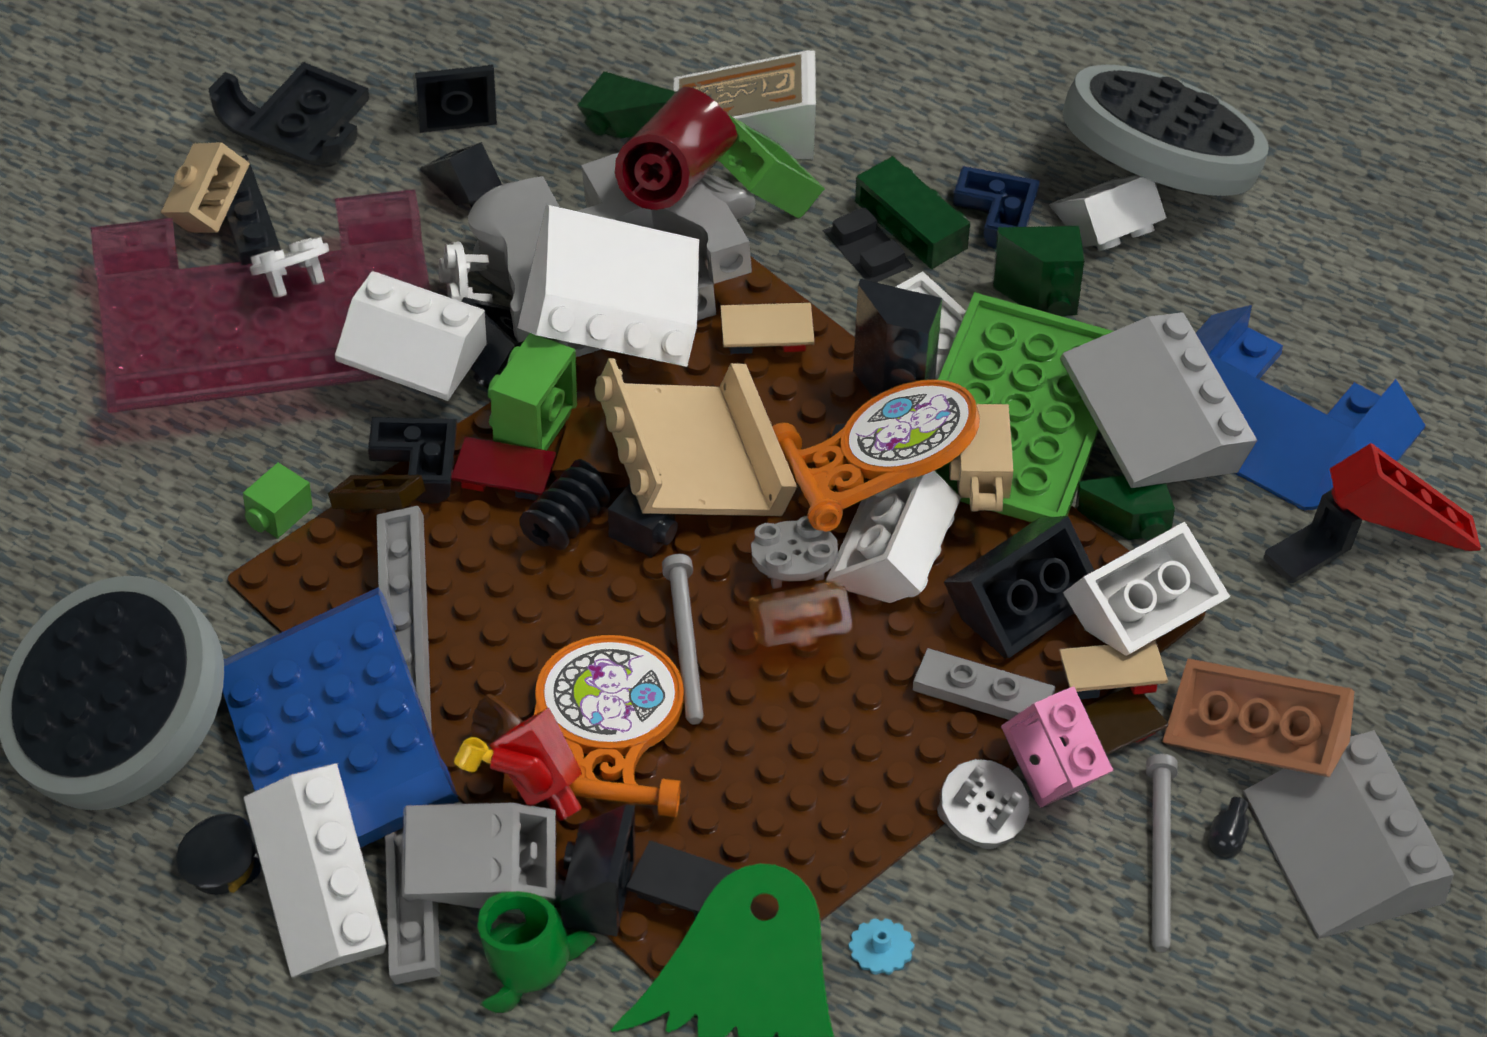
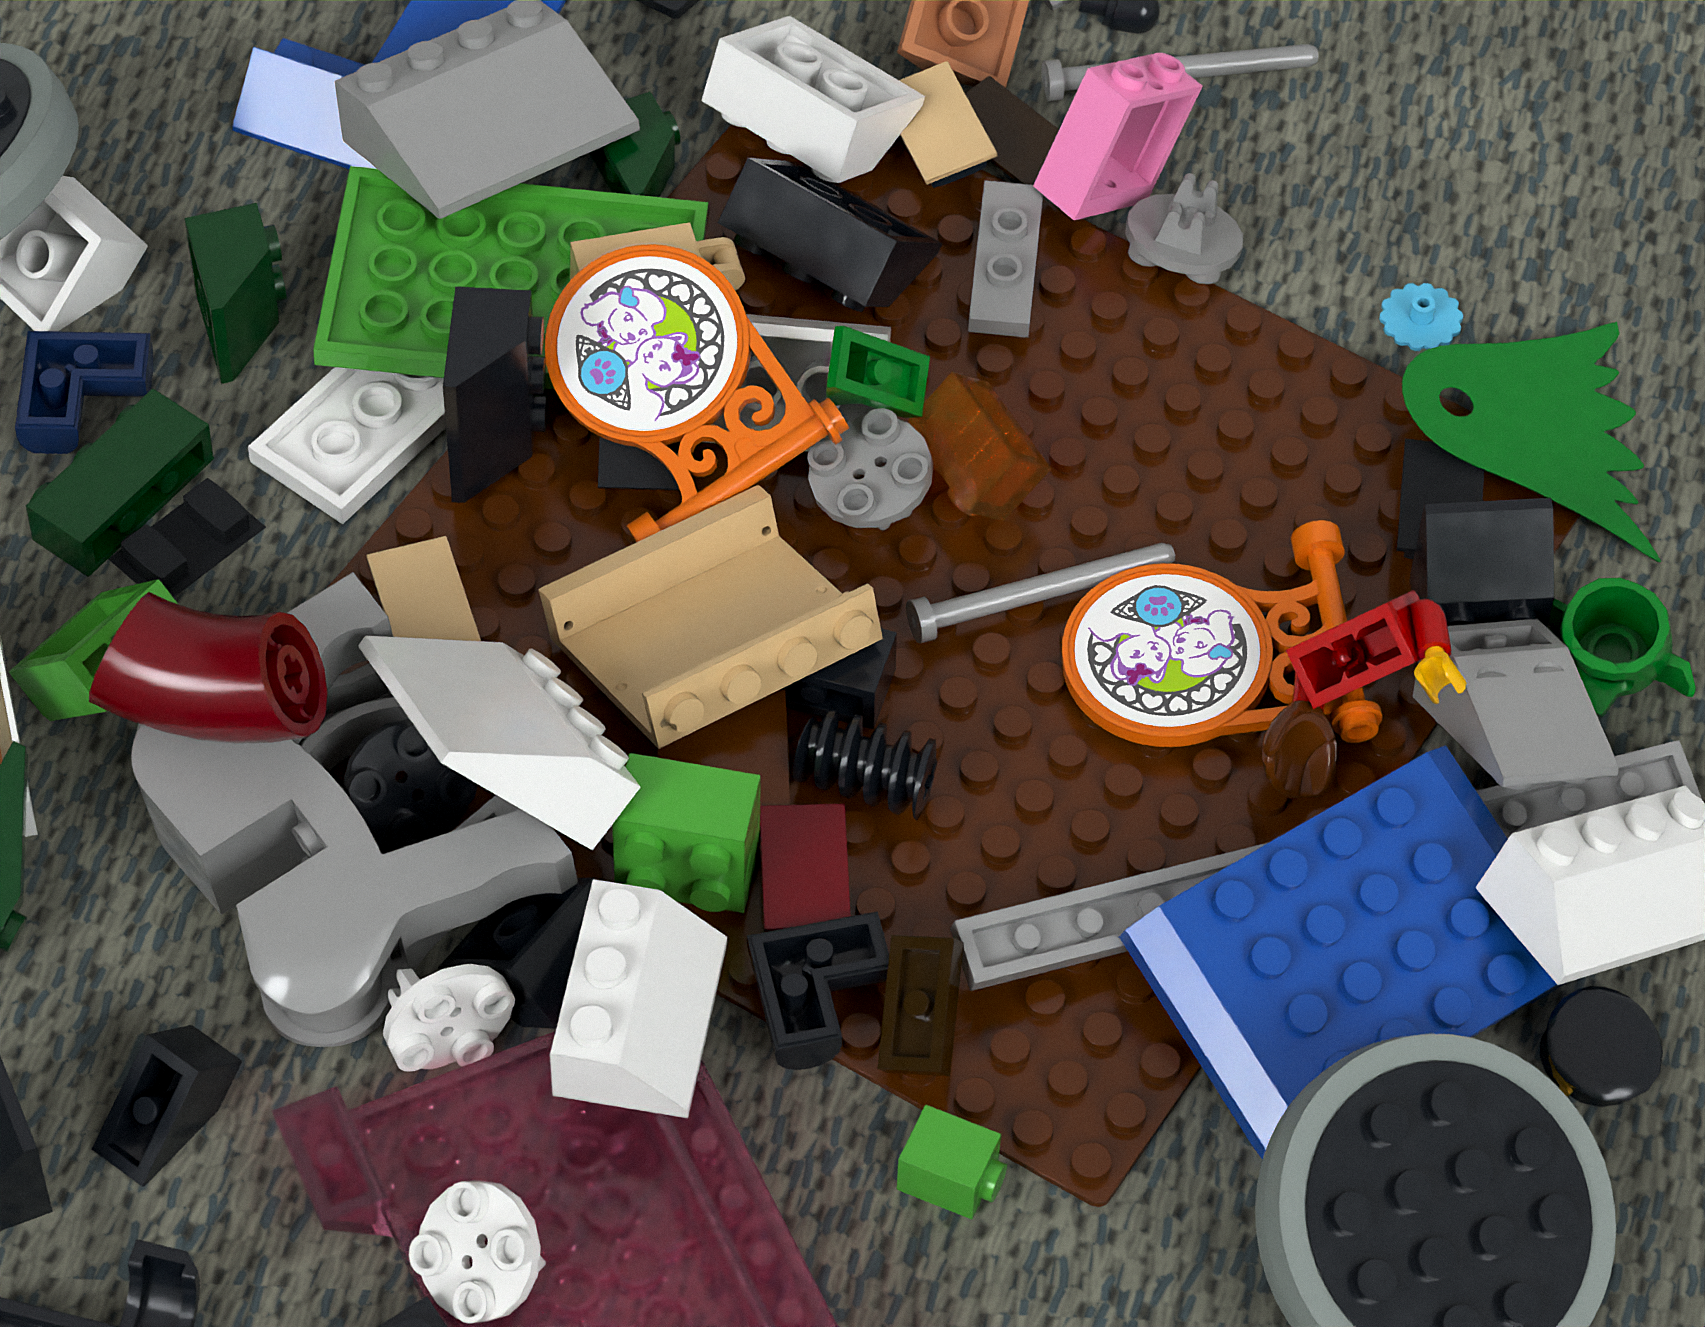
camera: 105 degrees left, 5 degrees up
(850, 532) = (876, 373): none -> green slope

